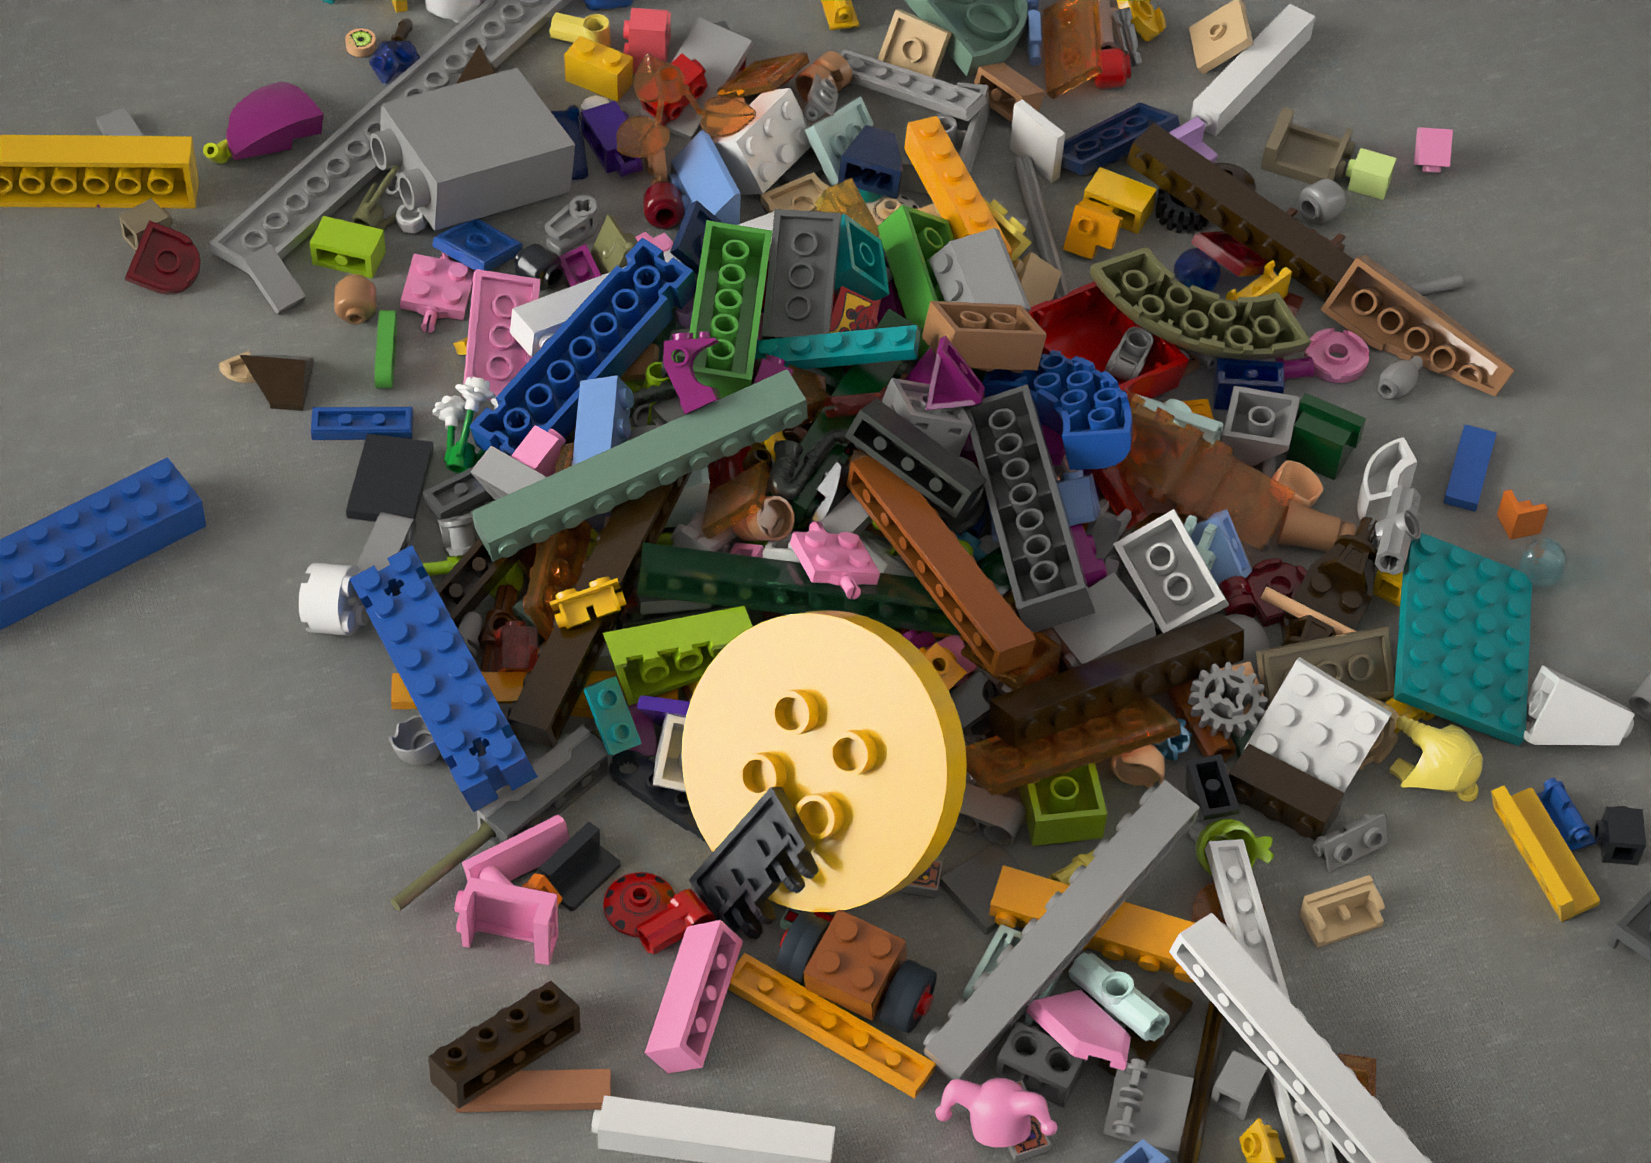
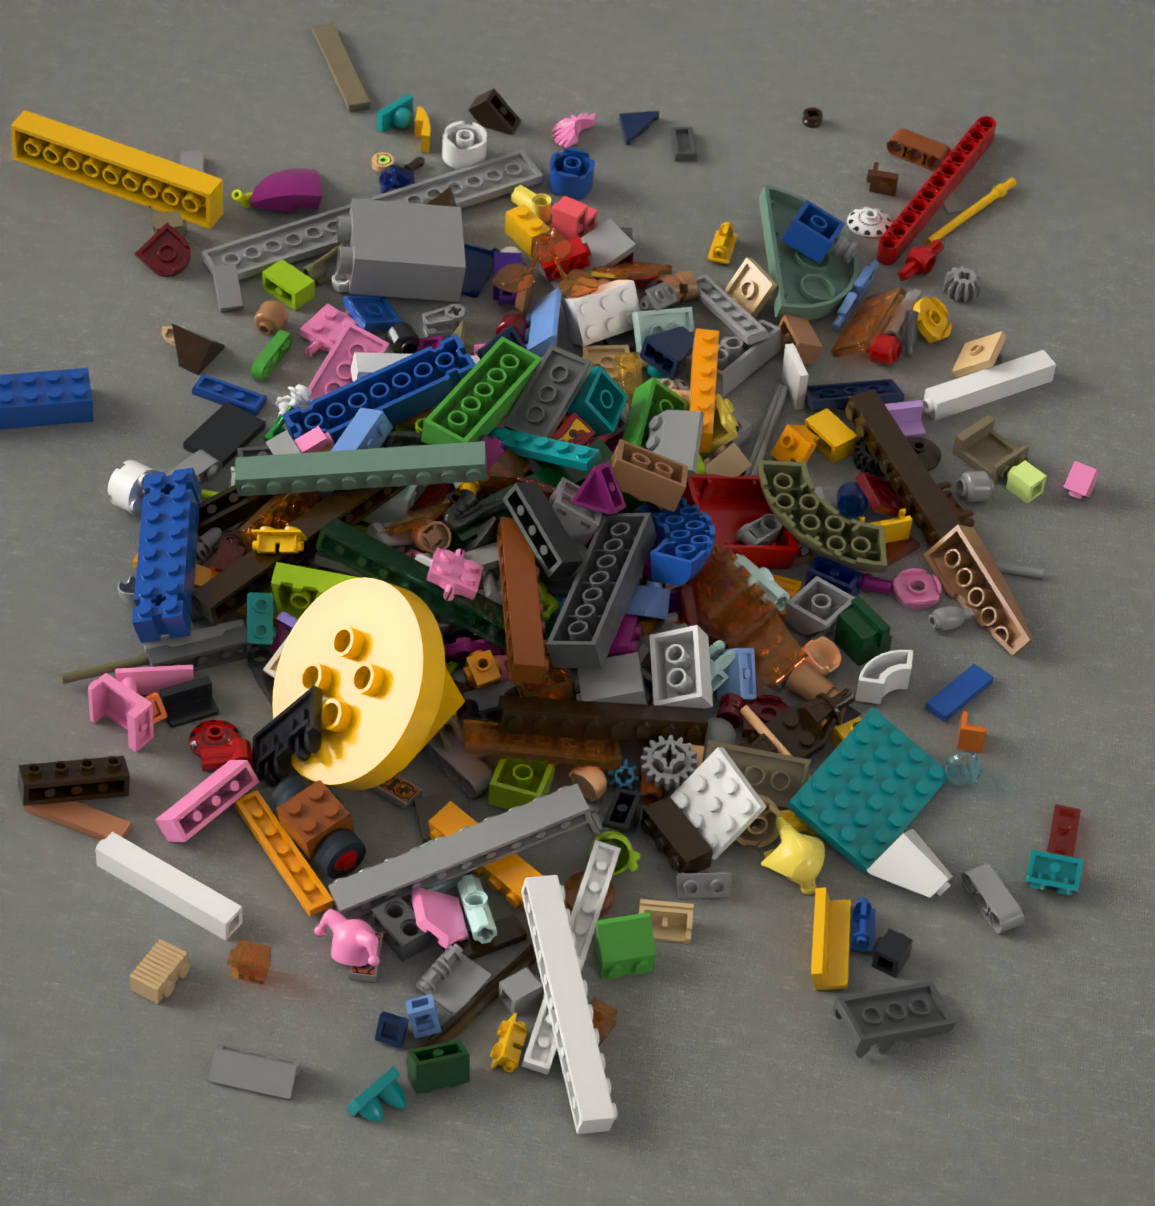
camera: 25 degrees right, 5 degrees down
(690, 391) = (416, 424): magenta tile -> none
(1327, 969) = (624, 946): none -> bright green slope
(1397, 530) = (861, 703): light grey piece -> none

